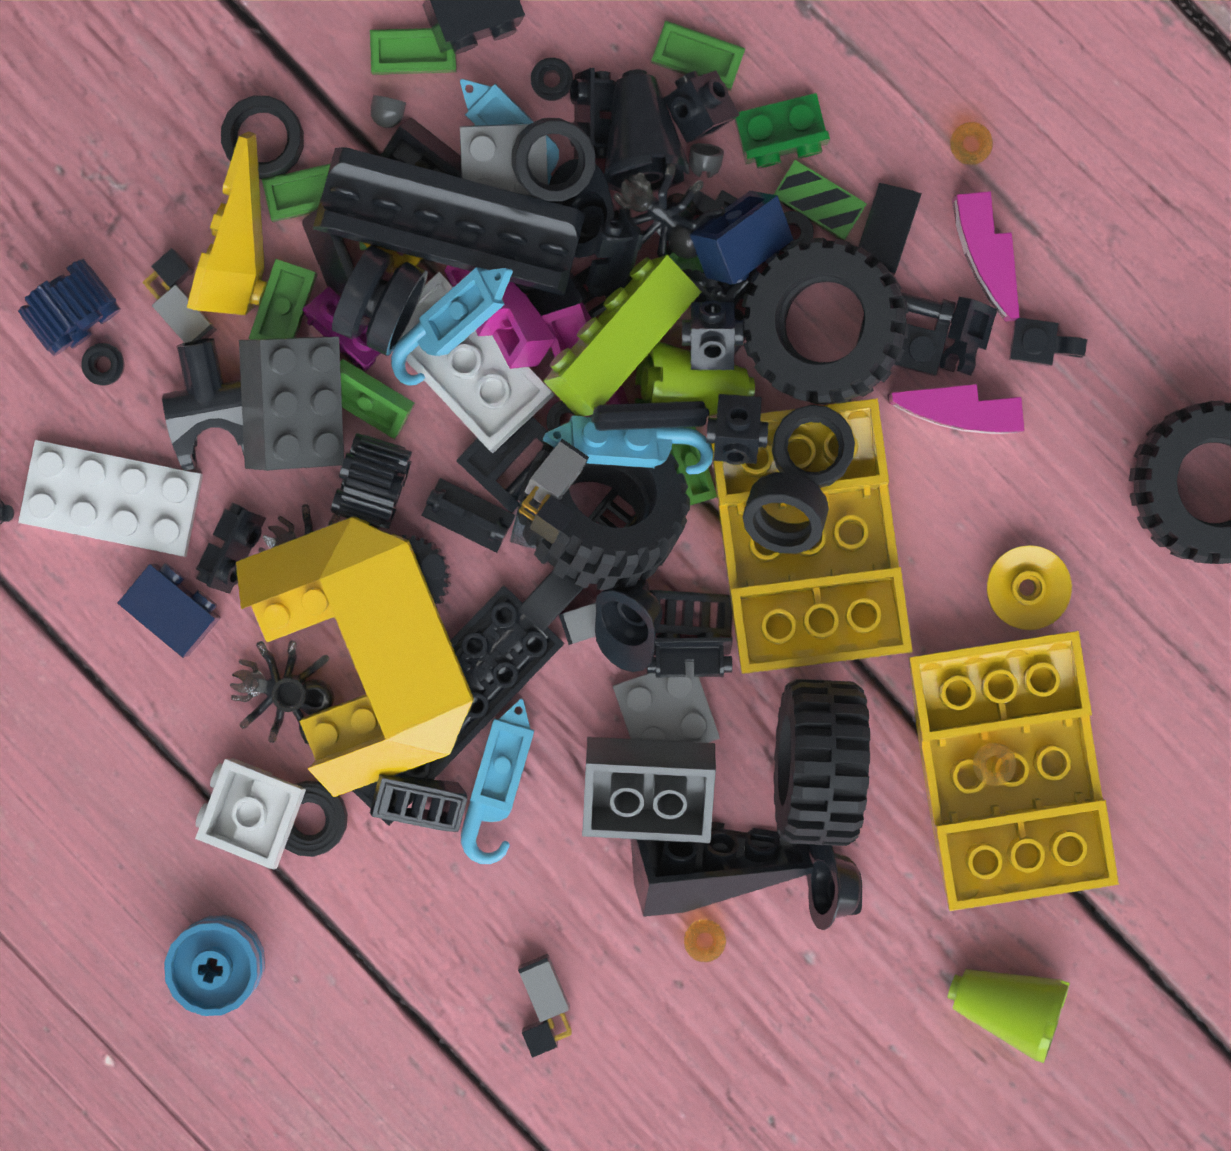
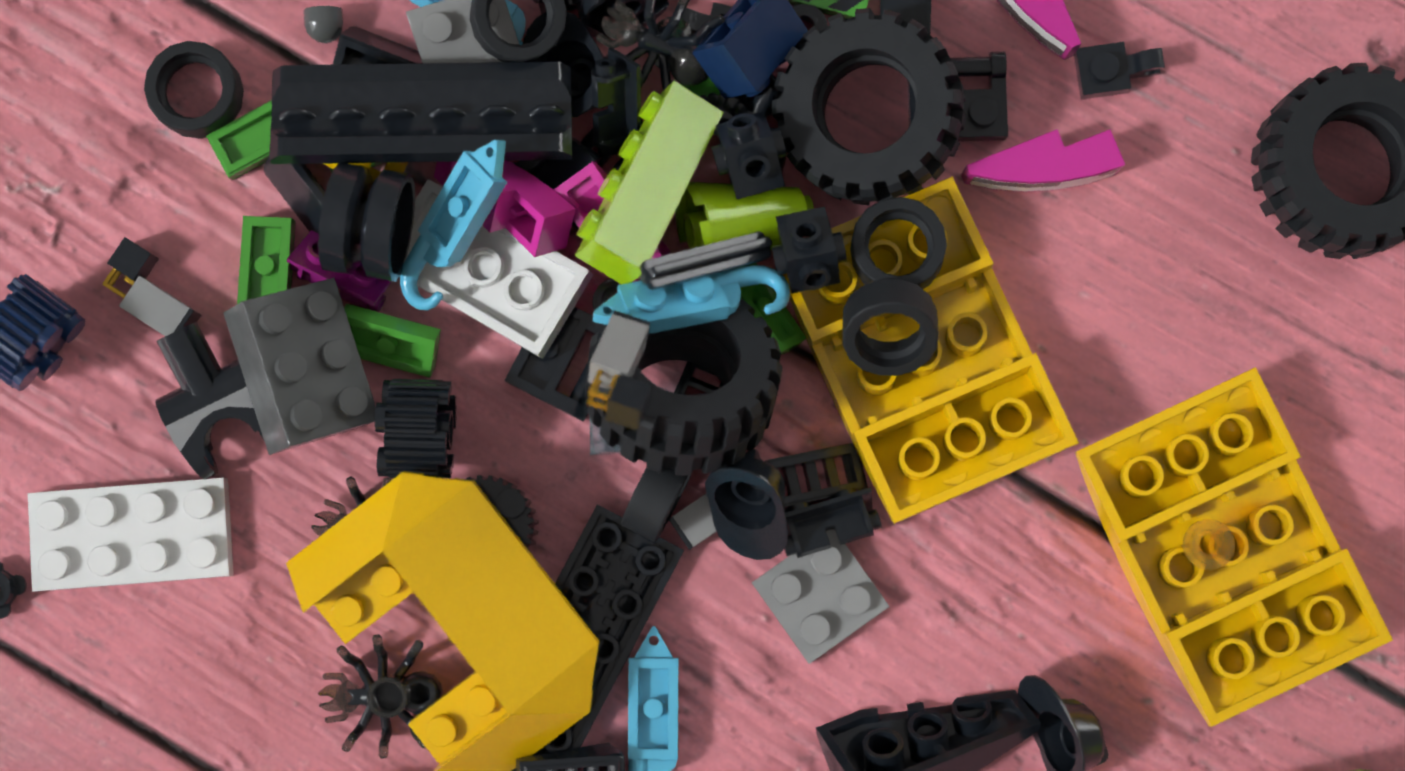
camera: 15 degrees left, 5 degrees down
(90, 360) = (69, 384): black plate -> none
(170, 609) = (228, 639): dark blue brick -> none
(233, 267) = (195, 235): yellow wedge -> none
(240, 532) = (285, 530): black hinge -> none
(468, 515) = (535, 438): black hinge -> none
(649, 789) = (828, 687): dark grey brick -> none
(821, 762) = (1017, 597): black tyre -> none
(971, 331) = (1032, 78): black plate -> none
(1050, 593) = (1201, 322): yellow dish -> none

